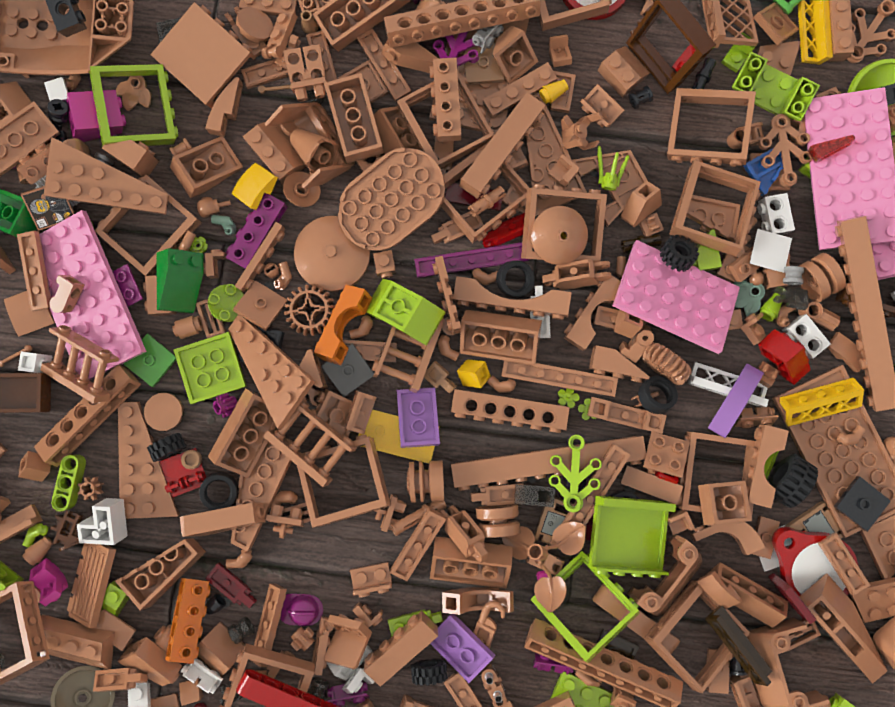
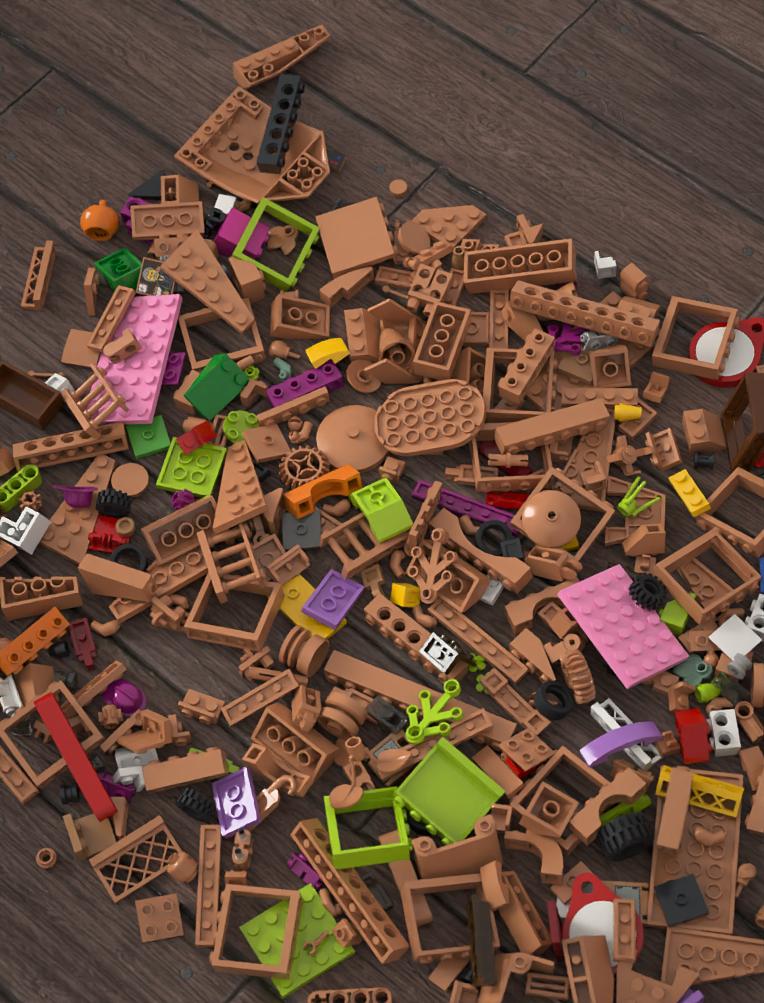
camera: 45 degrees right, 25 degrees down
(127, 461) = (77, 496): none -> magenta piece
(196, 340) = (196, 437): none -> red slope
(487, 342) = (433, 568): none -> nougat plant
(540, 281) = (512, 548): none -> black plate
(549, 411) = (445, 653): none -> bracket
(650, 136) = (689, 493): none -> yellow plate
(859, 477) = (675, 810): none -> nougat window

